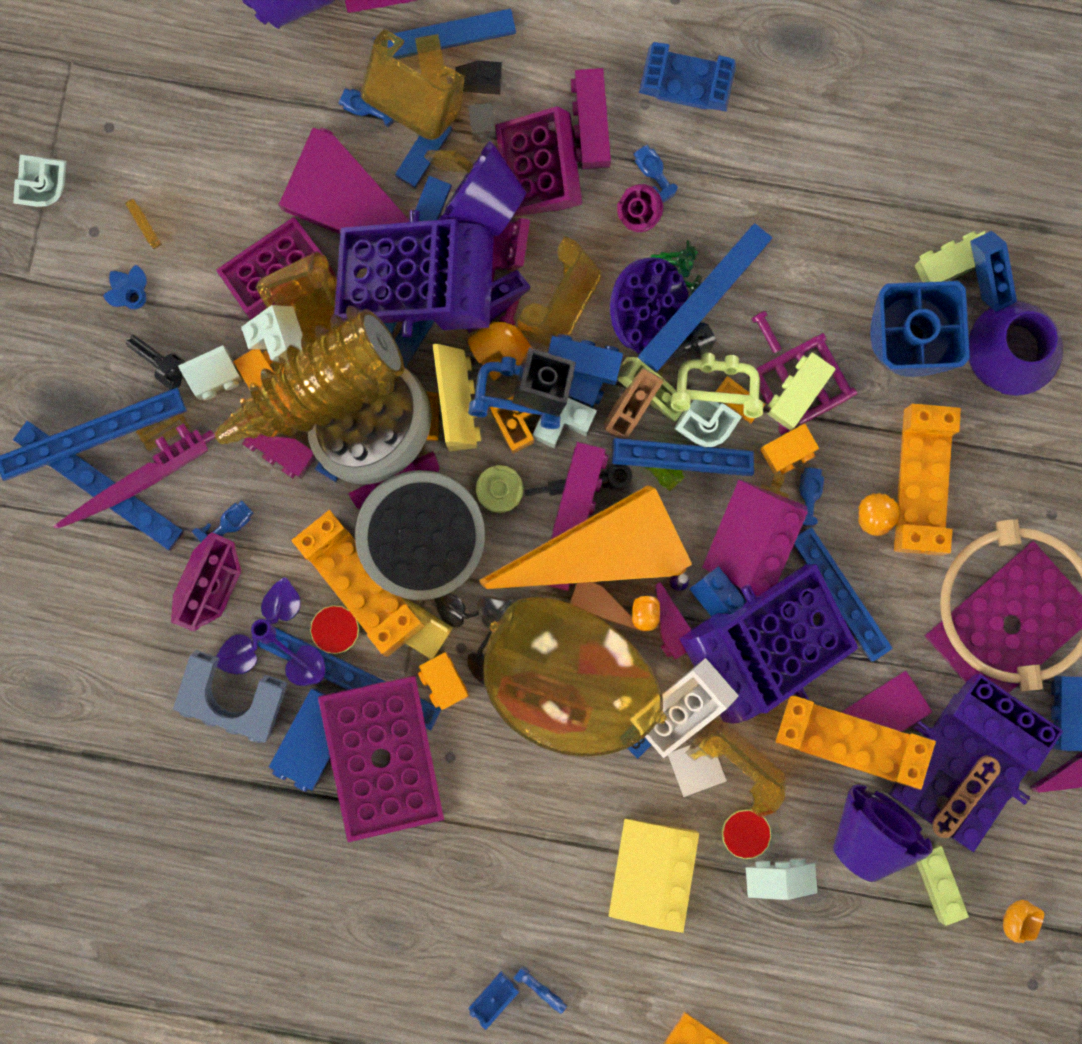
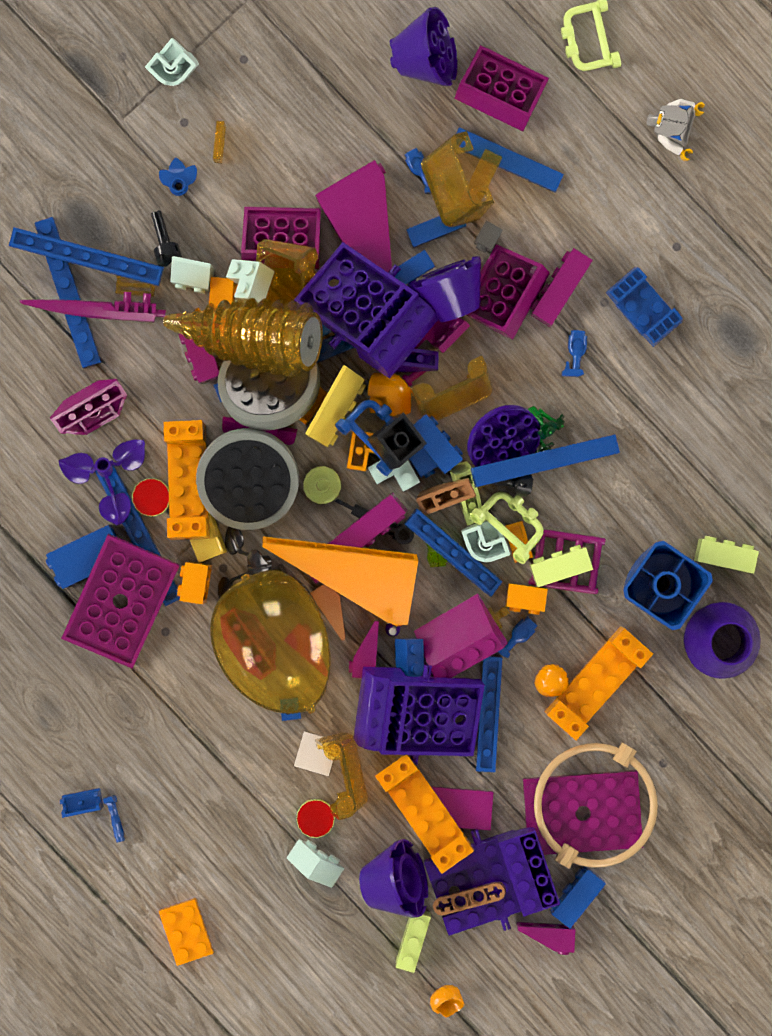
camera: 40 degrees right, 5 degrees up
(197, 701) = (31, 480): sand blue arch -> none
(231, 521) = (137, 378): blue piece -> none
(449, 161) = (445, 249): clear yellow tile -> none
(481, 77) = (509, 205): black slope -> none
(640, 208) = (547, 371): magenta cone -> none
(646, 613) = (354, 634): light orange piece -> none
(654, 875) = (238, 800): light yellow slope -> none
(691, 706) = (337, 714): white brick -> none
(767, 331) = (570, 510): magenta piece -> none
(993, 271) = (743, 582): blue brick -> none

